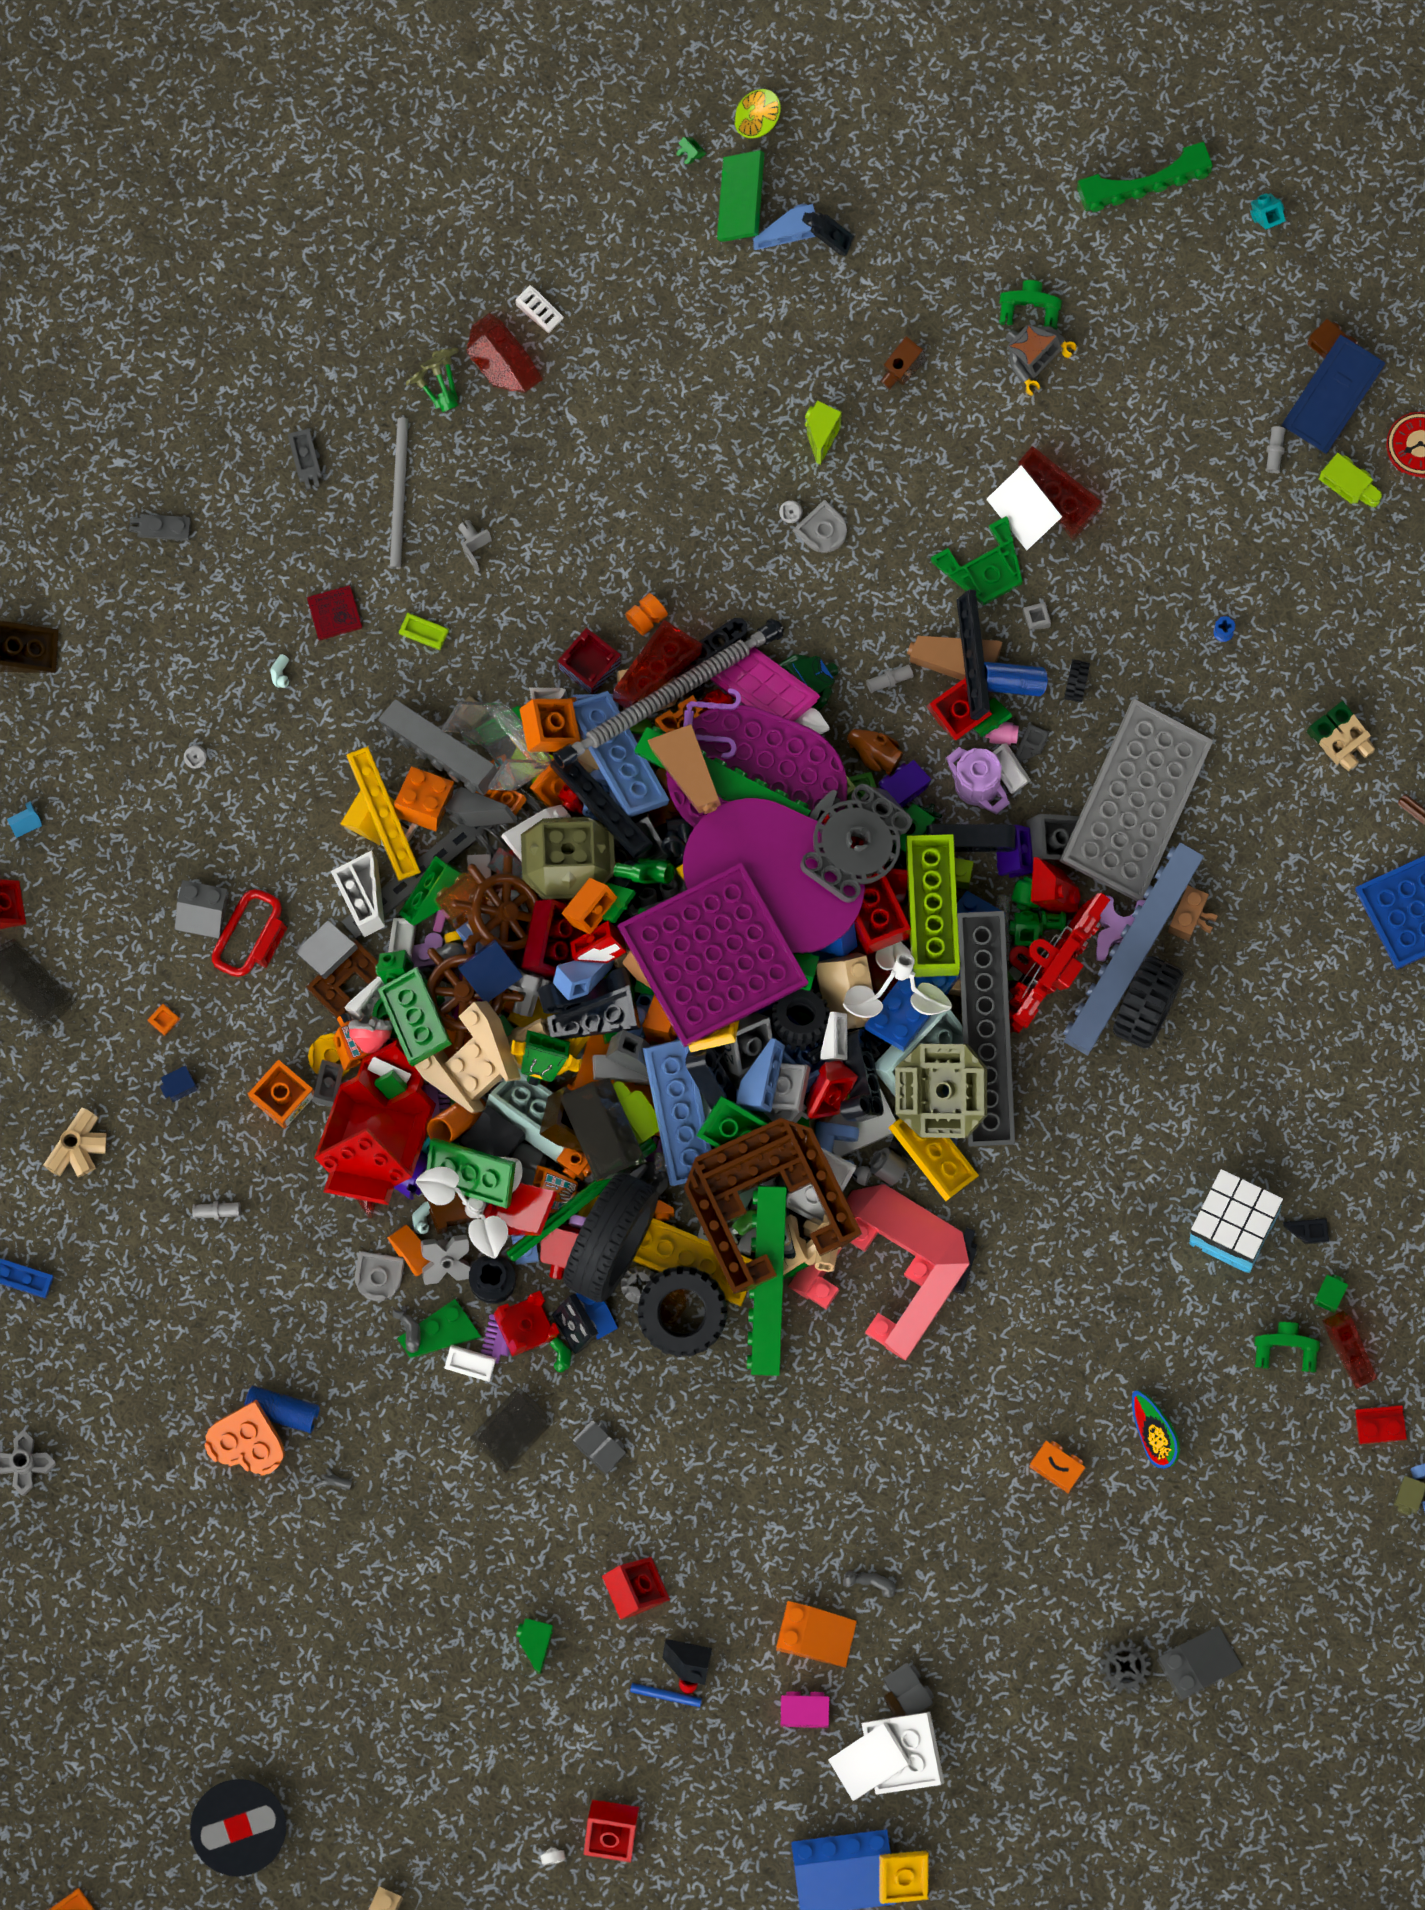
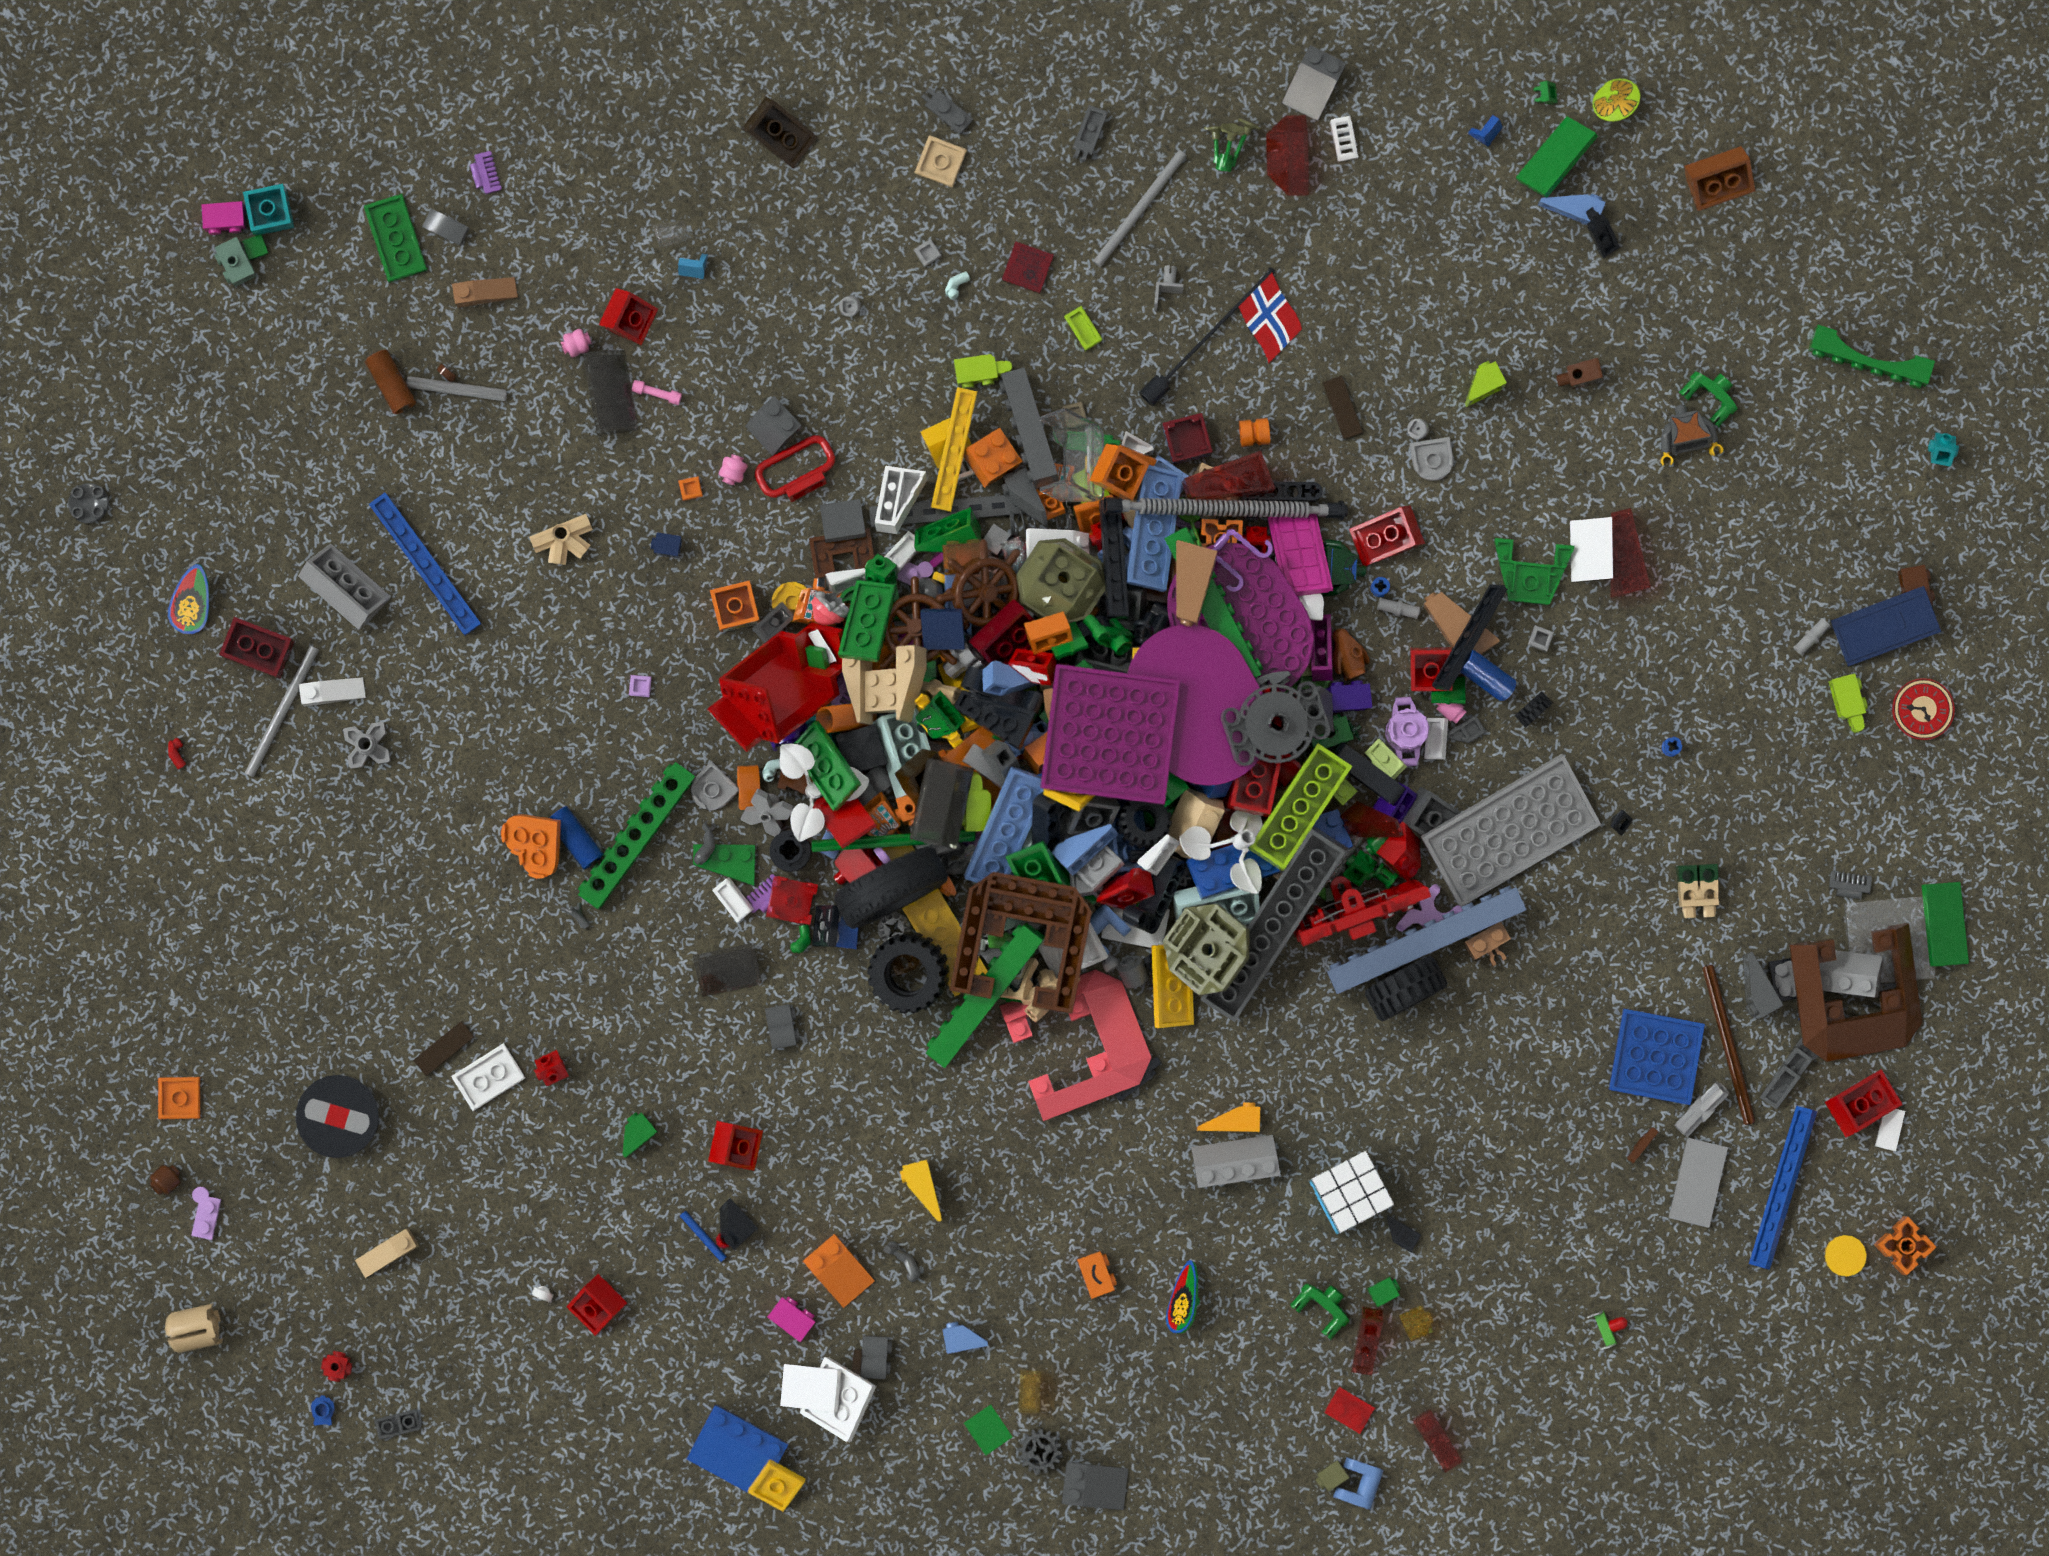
camera: 30 degrees right, 10 degrees up
(90, 948) = (639, 387): none -> bright pink bar
(187, 574) = (940, 161): none -> tan tile
(191, 974) = (732, 469): none -> bright pink piece
(216, 1210) = (630, 658): light grey pin -> none
(233, 662) = (927, 253): none -> light grey tile
(243, 1230) = (640, 686): none -> lavender tile
(295, 1694) = (443, 1048): none -> dark brown tile
(341, 1450) = (660, 814): none -> green brick
(356, 730) = (979, 370): none -> lime hinge
(356, 1691) = (488, 1077): none -> white tile
(410, 1639) = (550, 1068): none -> red brick
(477, 279) = (1314, 82): none -> slope
(583, 509) = (1265, 315): none -> flag
(664, 217) = (1488, 132): none -> blue tile
(709, 540) = (1342, 407): none -> dark brown tile
(832, 622) = (1387, 535): none -> red slope
(836, 1498) = (921, 1184): none -> yellow slope
(855, 676) = (1385, 583): none -> blue bush
(855, 765) = (1322, 650): none -> magenta brick
(898, 117) = (1720, 178): none -> dark orange slope
(976, 1615) = (961, 1338): none -> medium blue slope
(977, 814) = (1385, 759): none -> yellowish green hinge
(1004, 880) = (1368, 822): none -> clear red slope
(1062, 1684) = (988, 1430): none -> green window
(1075, 1618) = (1029, 1391): none -> clear yellow brick
(1083, 1232) = (1239, 1119): none -> light orange slope
(1109, 1272) = (1235, 1161): none -> light grey slope
(1223, 726) = (1616, 819): none -> black slope
(1382, 1300) = (1417, 1323): none -> clear yellow brick

